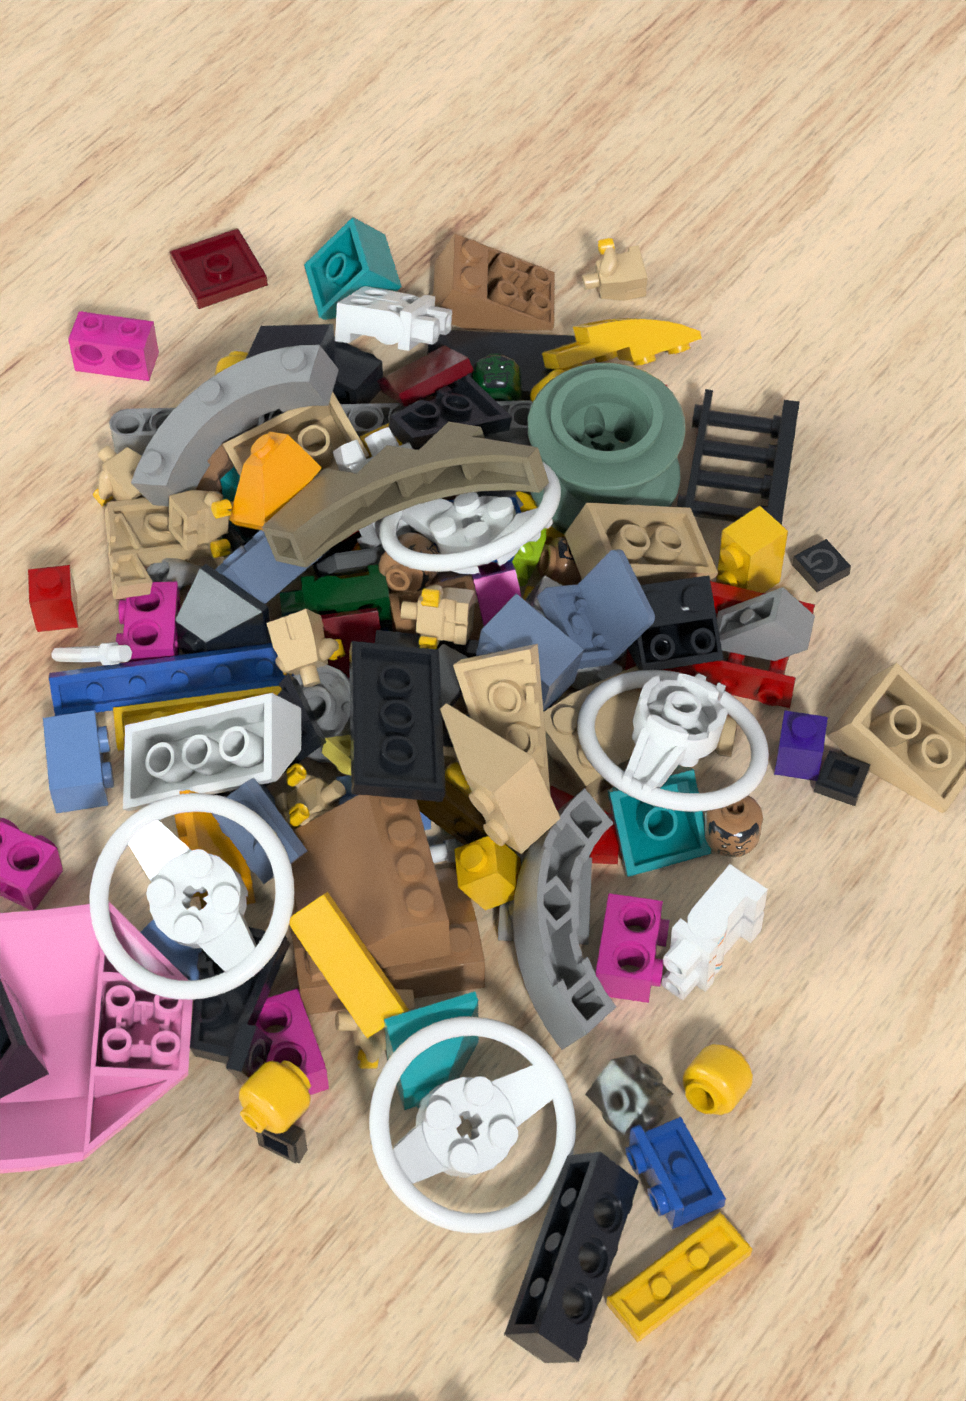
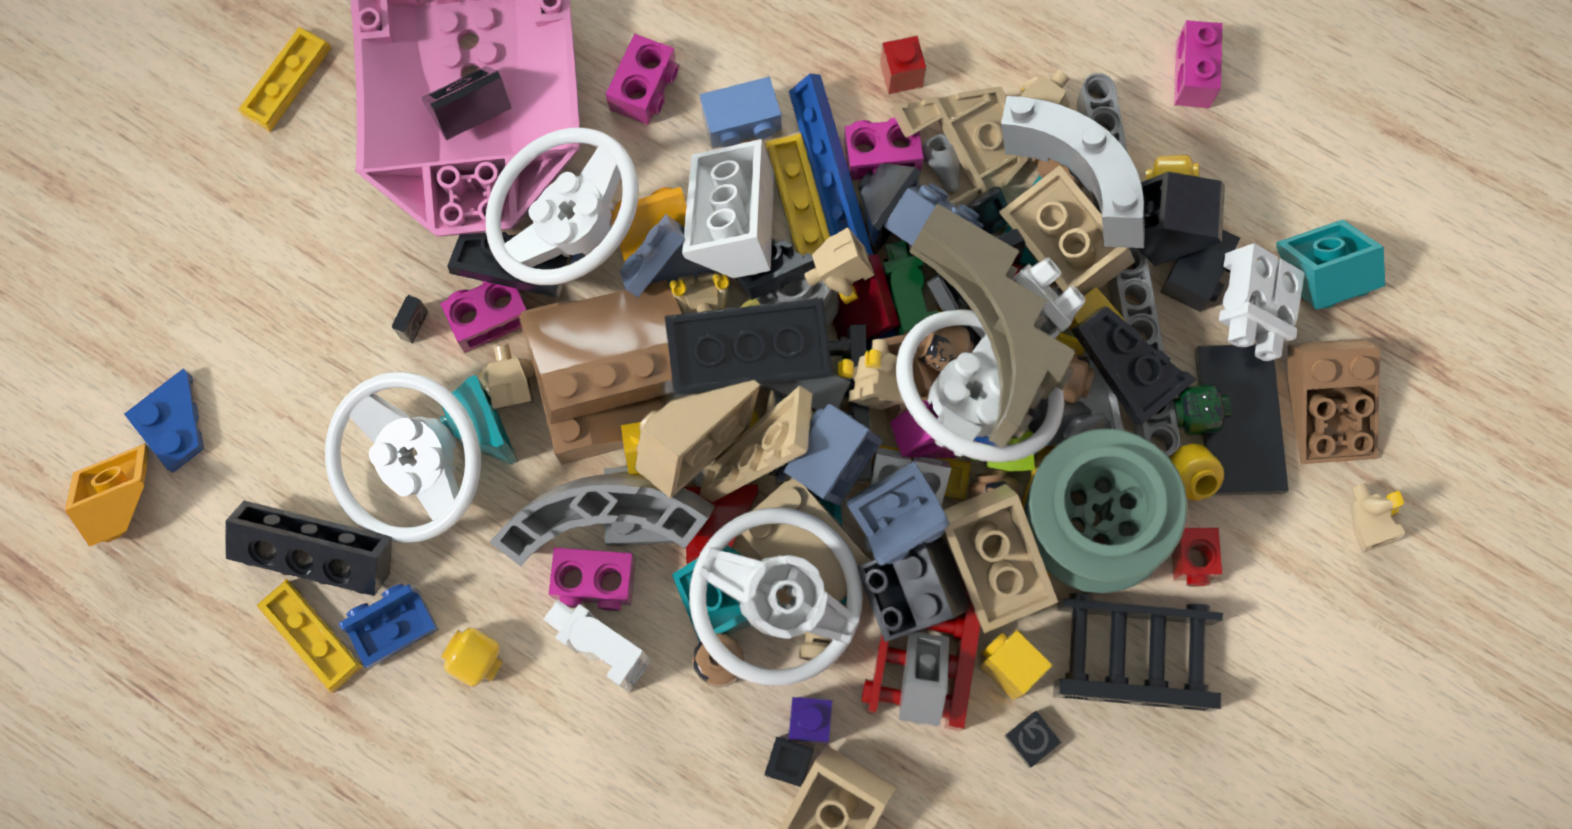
camera: 85 degrees right, 20 degrees up
(106, 653) = (844, 104): white piece -> none
(199, 519) = (990, 167): tan piece -> none
(218, 268) = (1322, 142): dark red tile -> none
(248, 1052) = (454, 279): black tile -> none
(271, 479) = (1007, 210): light orange slope -> none
(274, 1097) = (416, 303): yellow head -> none
(347, 964) = (518, 338): yellow tile -> none
(425, 375) = (1194, 341): dark red tile -> none
(622, 338) = (1288, 537): yellow slope -> none
(630, 1094) = (449, 585): clear smoke brick -> none

